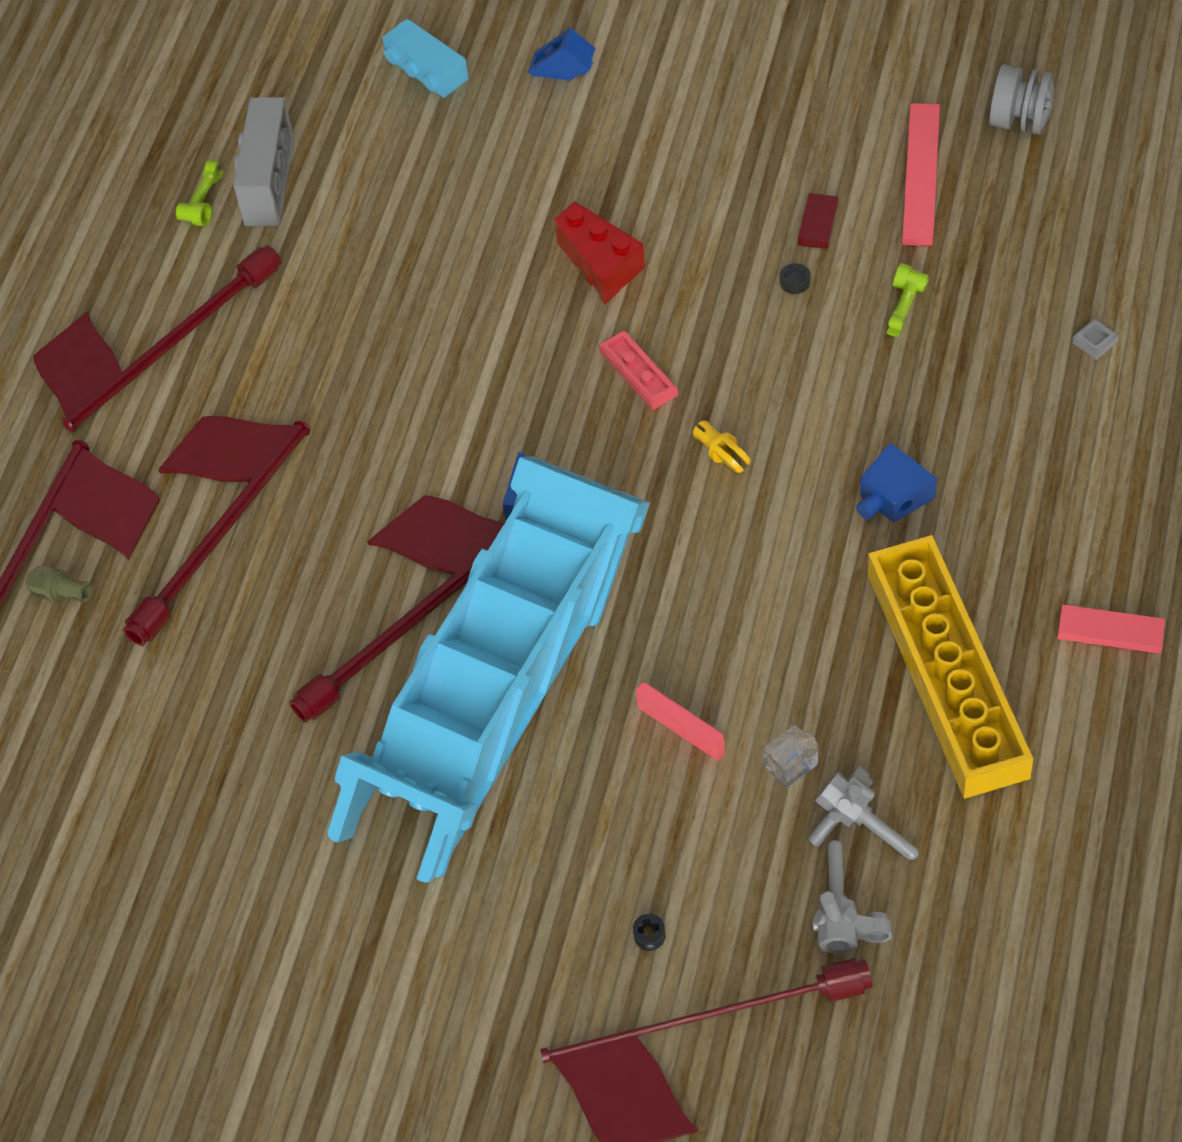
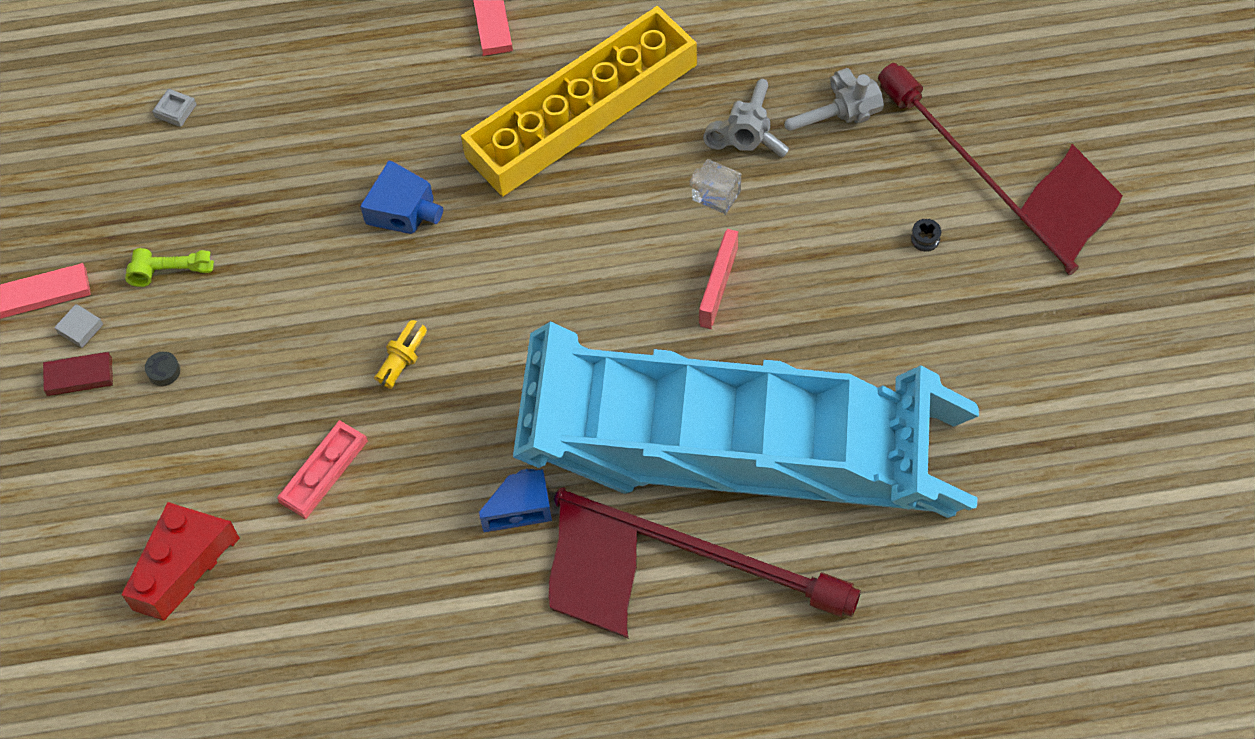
camera: 115 degrees left, 5 degrees up
(868, 228) = (78, 325): none -> light grey tile

